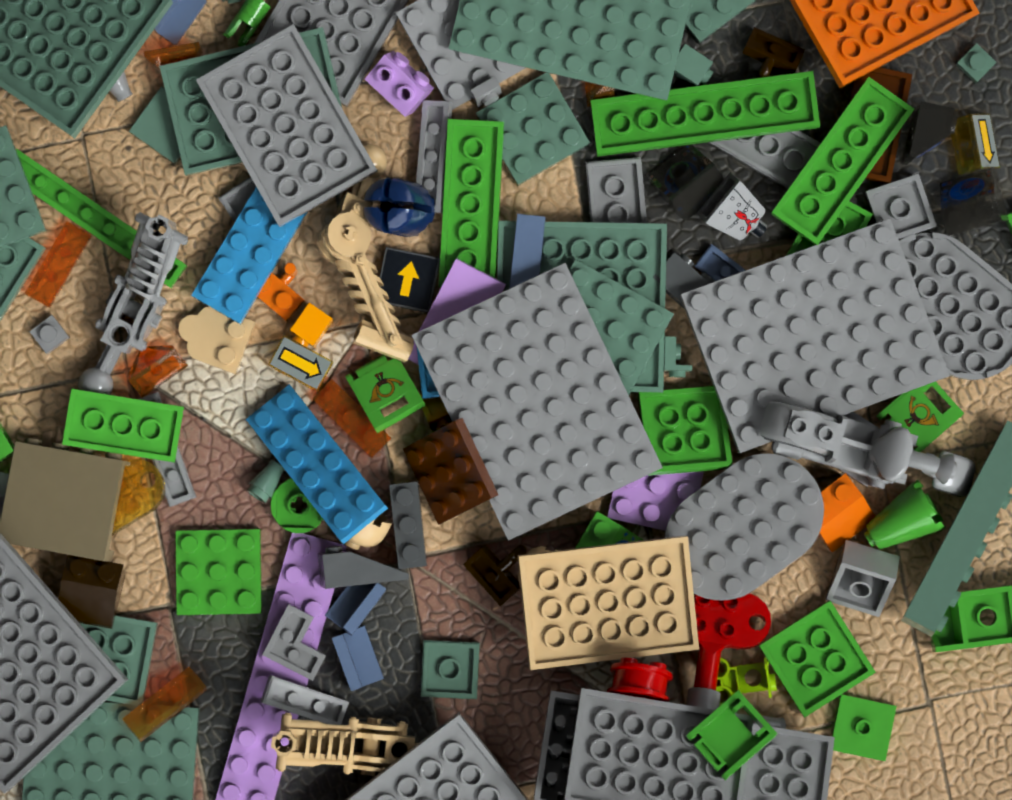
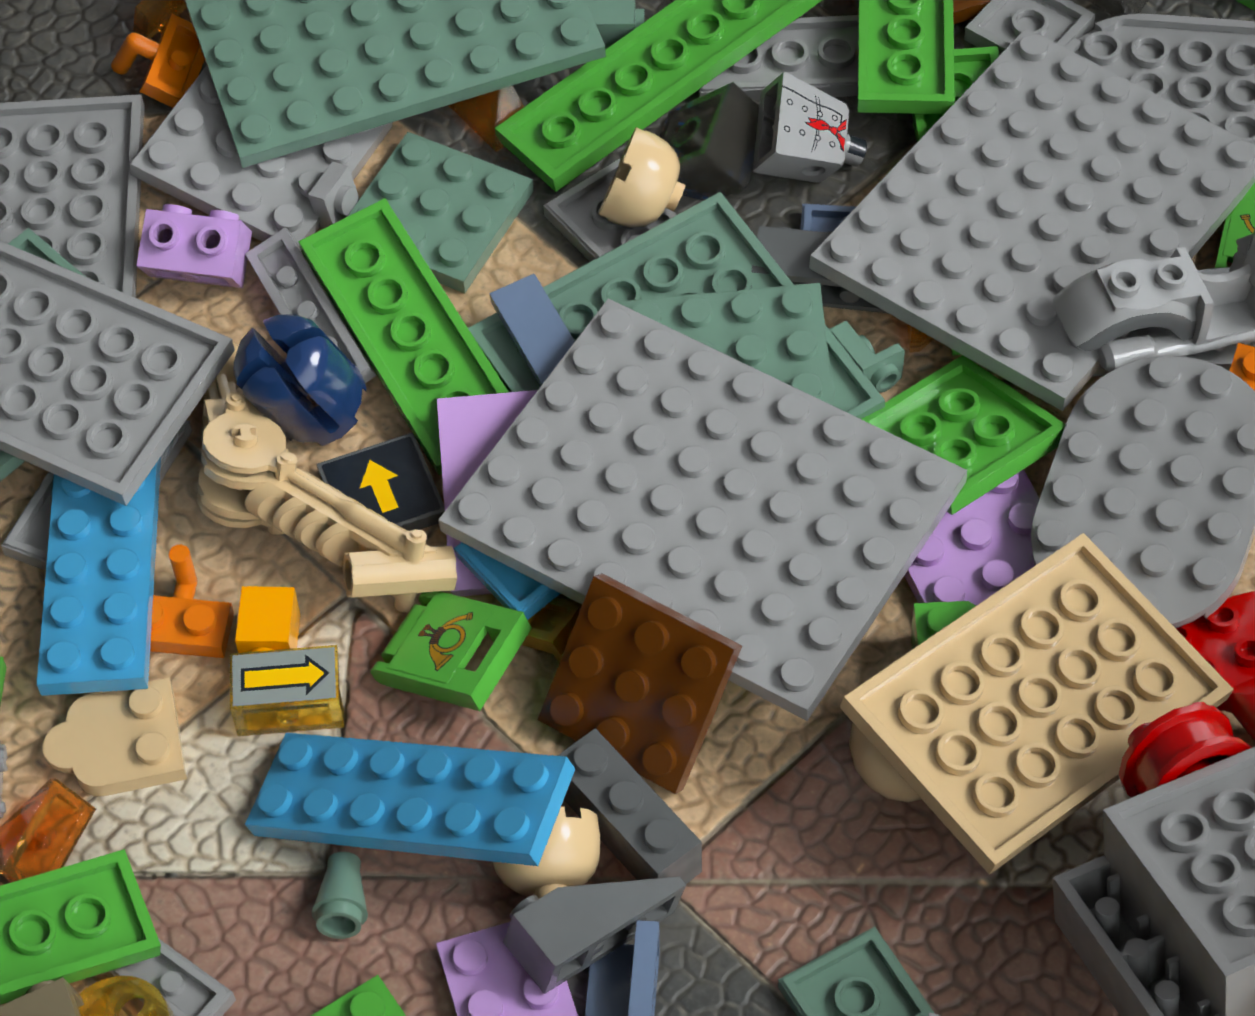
camera: 30 degrees left, 30 degrees down
(287, 516) = (417, 929): bright green plate -> none
(351, 418) = (420, 720): clear orange plate -> none
(494, 574) = (820, 805): dark brown plate -> none
(633, 192) = (643, 182): none -> tan cylinder

